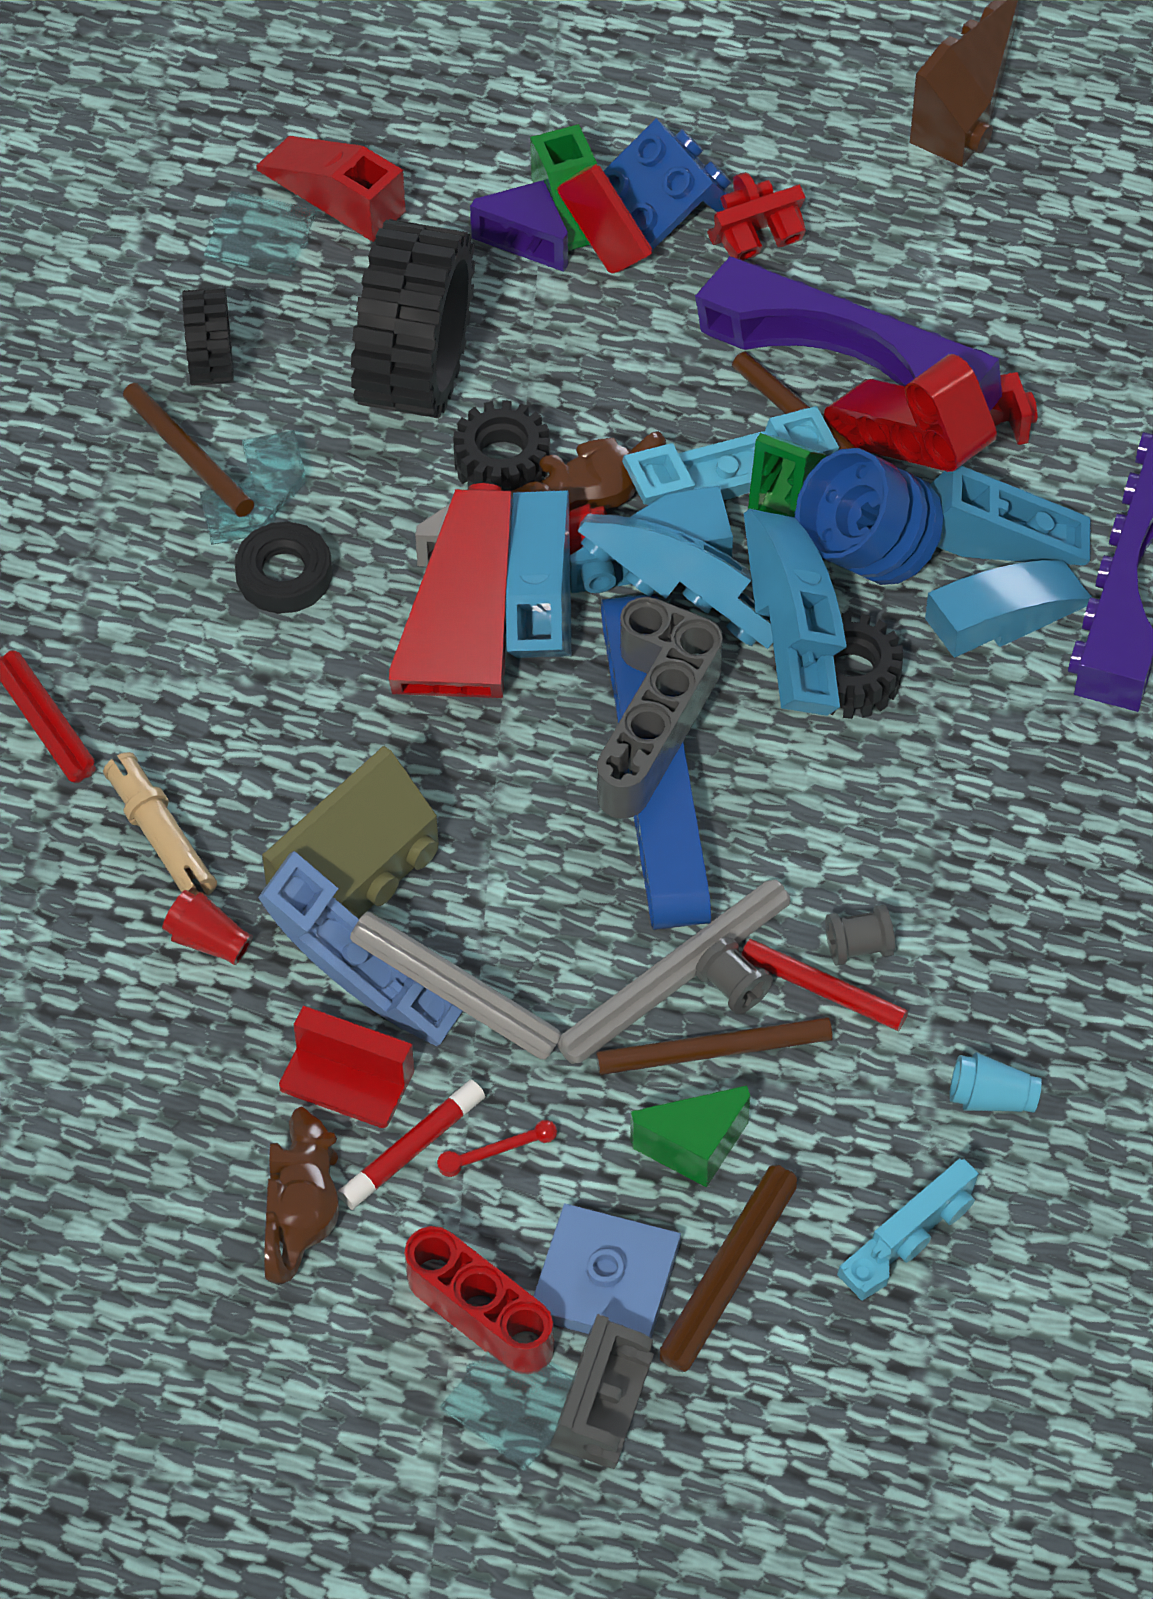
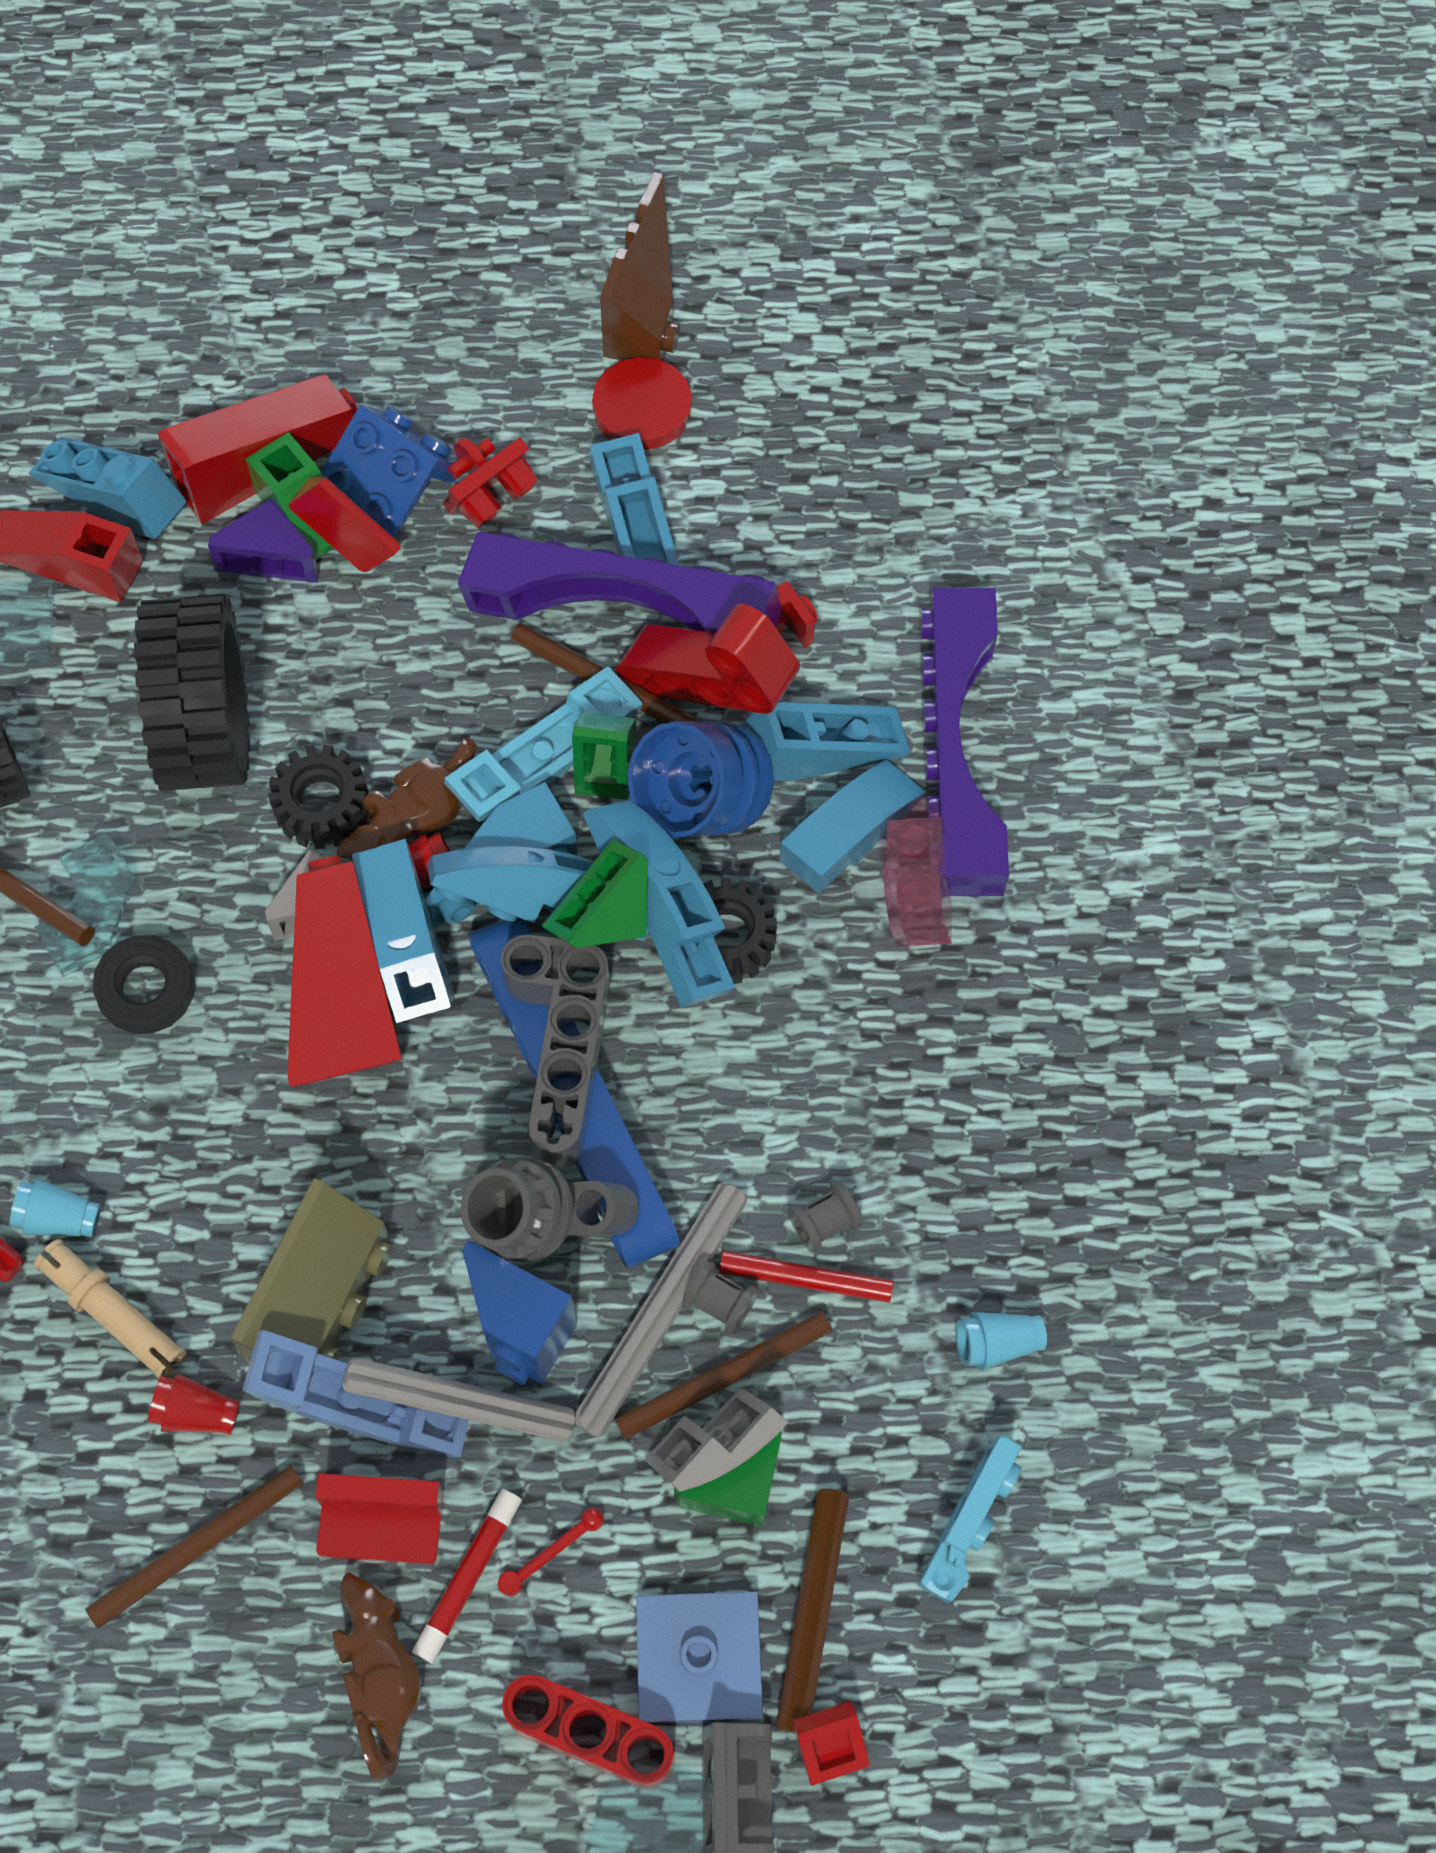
camera: 20 degrees left, 10 degrees up
(132, 729) = (52, 1211): none -> medium azure cone
(169, 1046) = (193, 1546): none -> reddish brown bar
(401, 134) = (111, 484): none -> dark azure slope
(498, 125) = (211, 450): none -> red slope
(538, 928) = (519, 1314): none -> blue slope
(573, 823) = (528, 1209): none -> dark grey beam
(674, 1084) = (699, 1455): none -> light grey slope
(705, 1379) = (831, 1743): none -> red tile
(738, 589) = (605, 902): none -> green slope
(891, 262) = (631, 499): none -> dark azure slope
(932, 190) = (643, 399): none -> red tile
(1048, 671) = (916, 882): none -> clear pink brick

